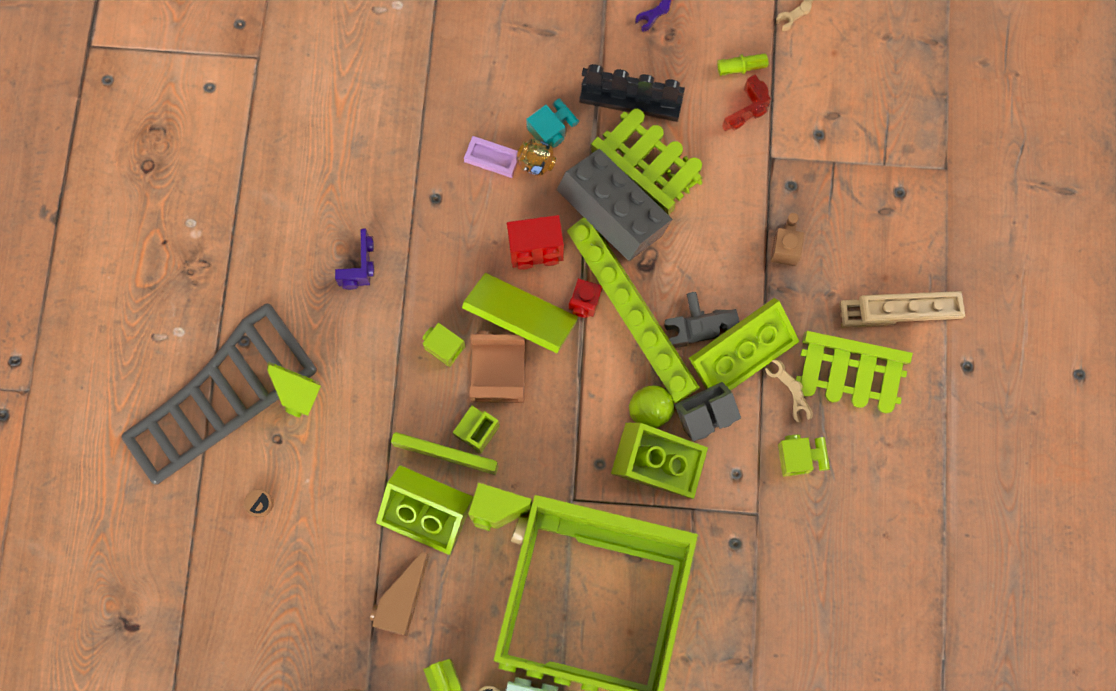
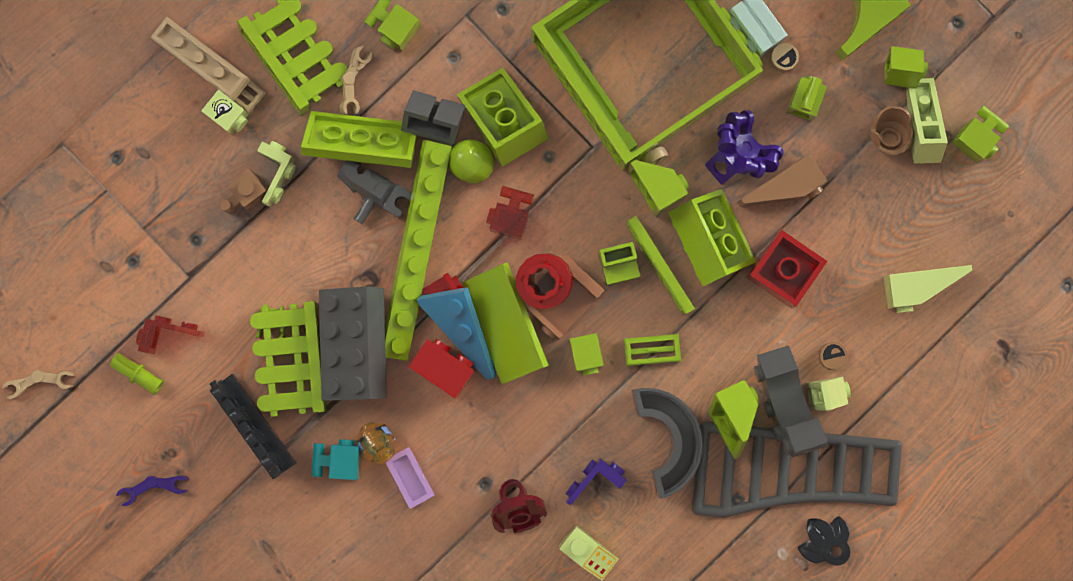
camera: 140 degrees left, 10 degrees up
(156, 365) = (823, 539): none -> black plate
(233, 612) = (915, 288): none -> yellowish green slope
(236, 467) = (828, 393): none -> yellowish green slope
(259, 433) = (787, 403): none -> dark grey brick
(321, 211) = (588, 552): none -> yellowish green slope
(326, 351) = (684, 433): none -> dark grey brick
(346, 532) = (786, 269): none -> red brick
(395, 194) = (518, 512): none -> dark red tile
(414, 388) = (676, 348): none -> lime tile
(459, 595) = (741, 149): none -> dark purple piece
(523, 350) = (531, 292): none -> red piece
(556, 286) = (458, 320): none -> dark azure wing
(585, 390) = (509, 219): none -> clear red brick
(793, 288) = (277, 153): none -> yellowish green bracket
(855, 283) = (226, 113): none -> yellowish green brick

